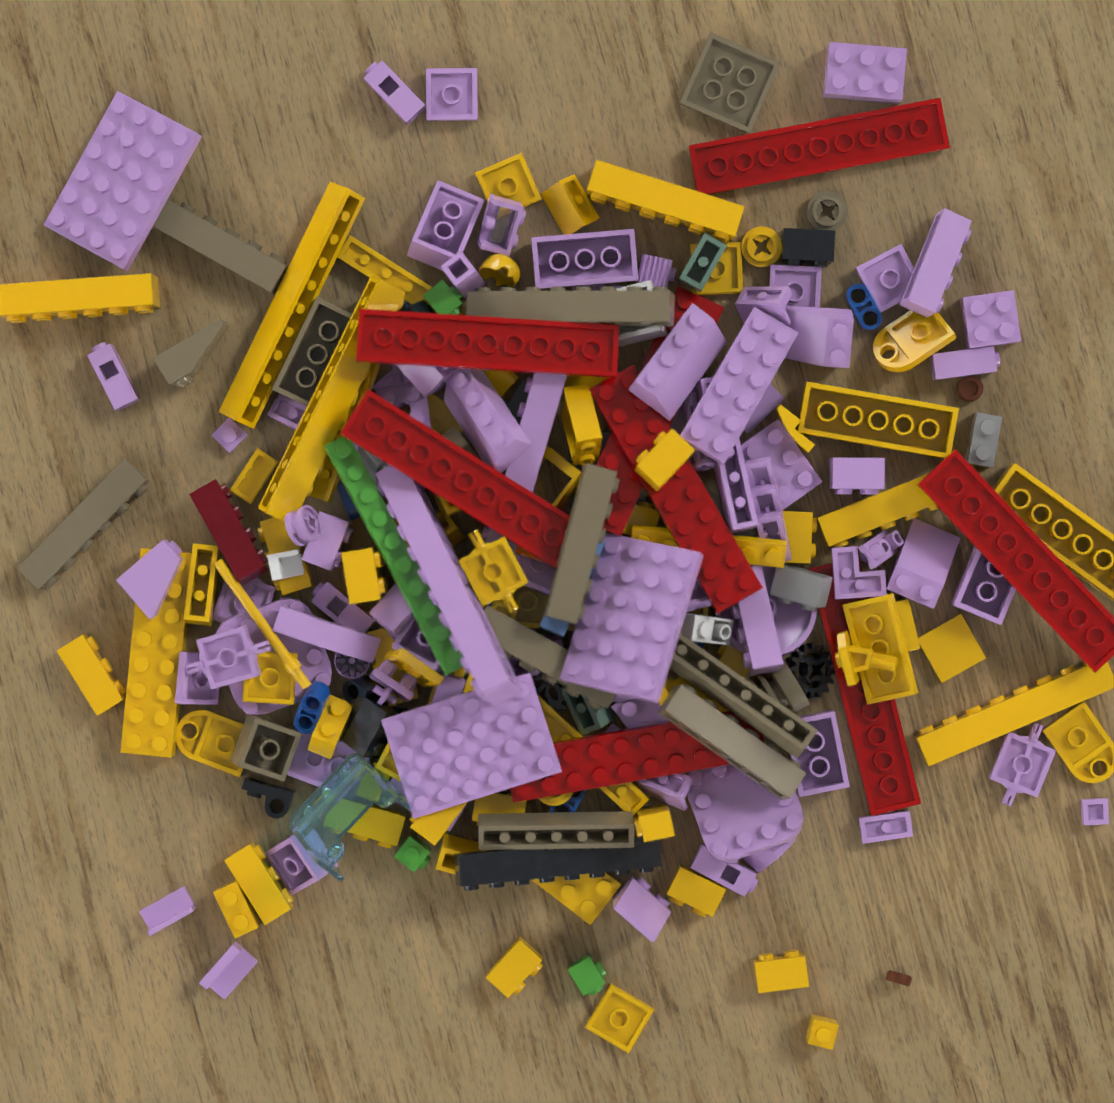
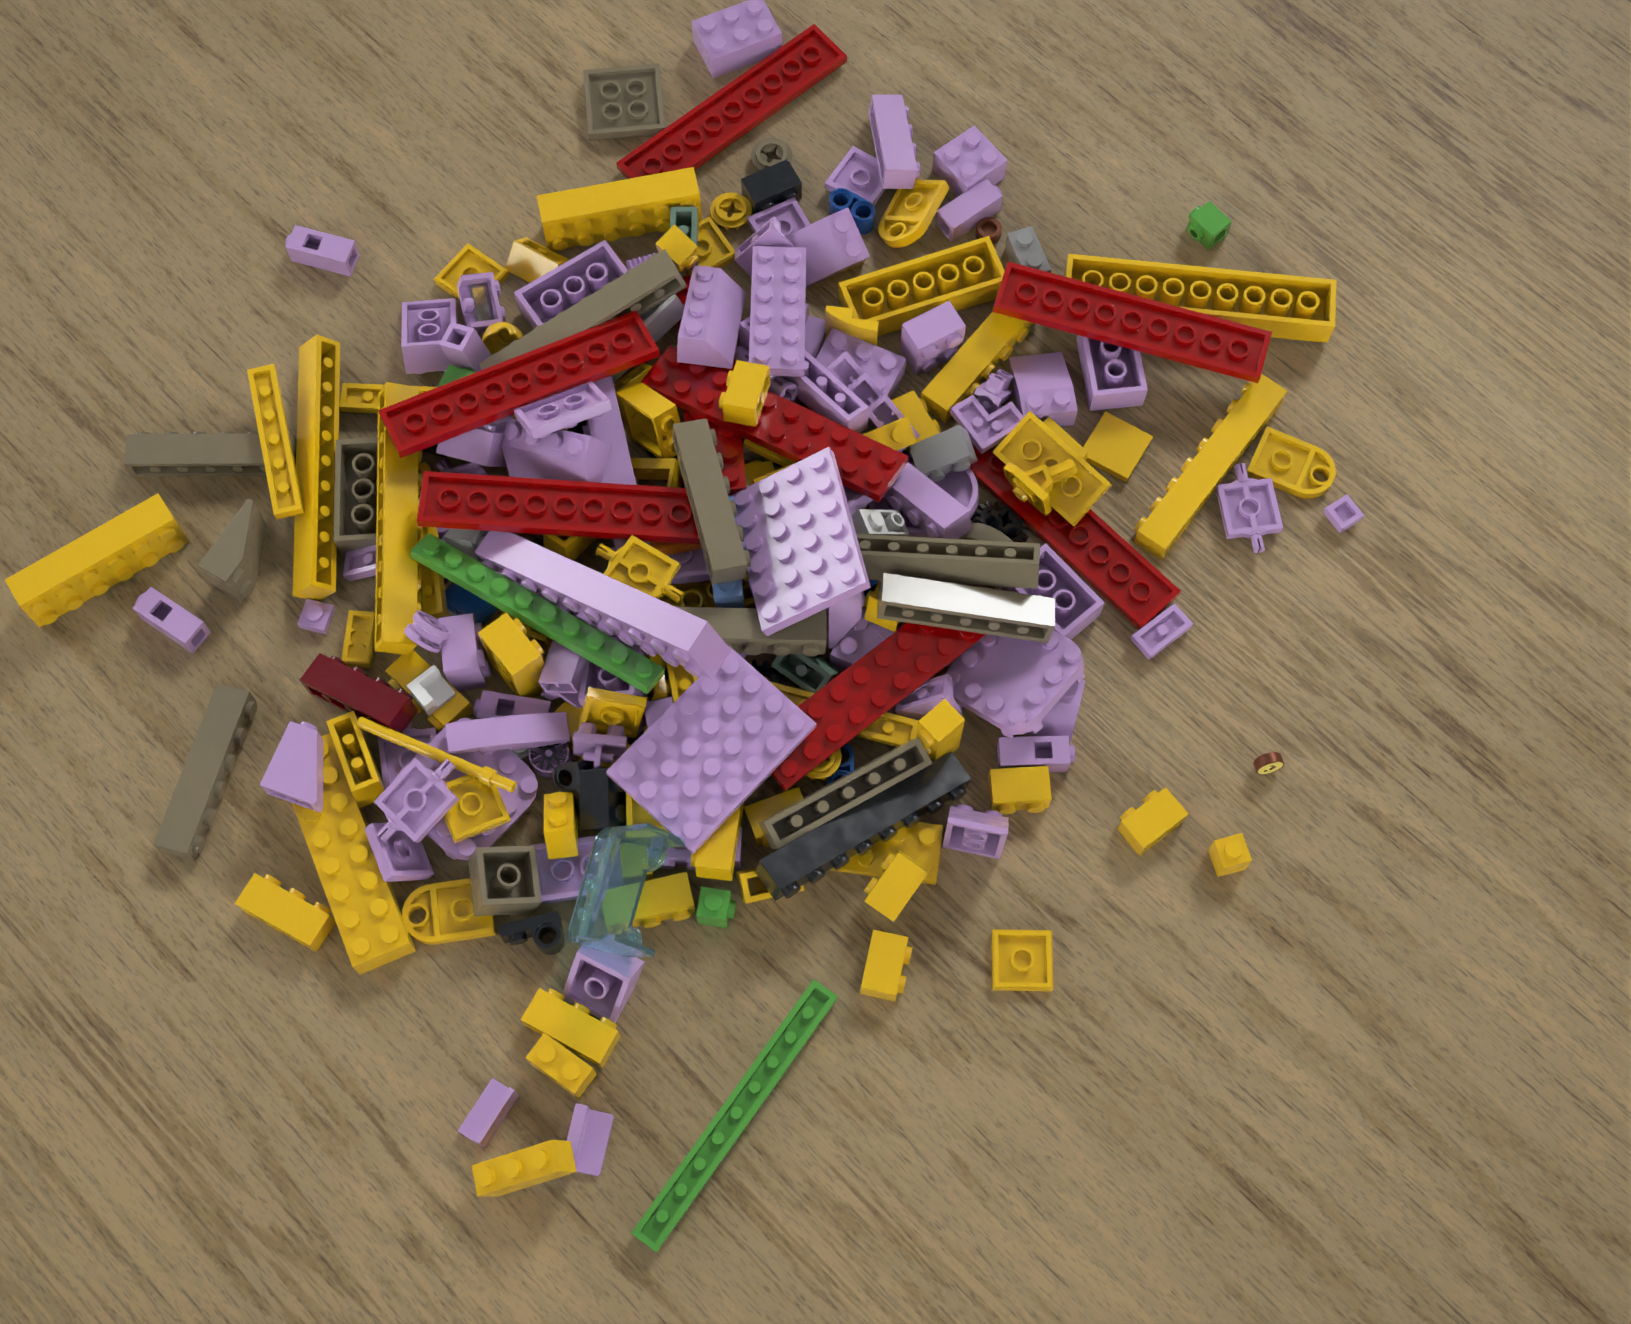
camera: 35 degrees left, 20 degrees down
(122, 180) = (95, 443): lavender plate -> none
(171, 972) = (524, 1168): none -> yellow brick
(267, 269) = (275, 441): none -> yellow plate
(311, 707) = (530, 814): blue beam -> none
(346, 1012) = (734, 1116): none -> bright green plate
(451, 94) = (377, 228): lavender plate -> none
(507, 393) = (563, 410): none -> lavender plate
(556, 914) = (895, 884): none -> yellow brick
(588, 975) = (963, 931): bright green brick -> none
(686, 285) = (679, 247): none -> yellow brick

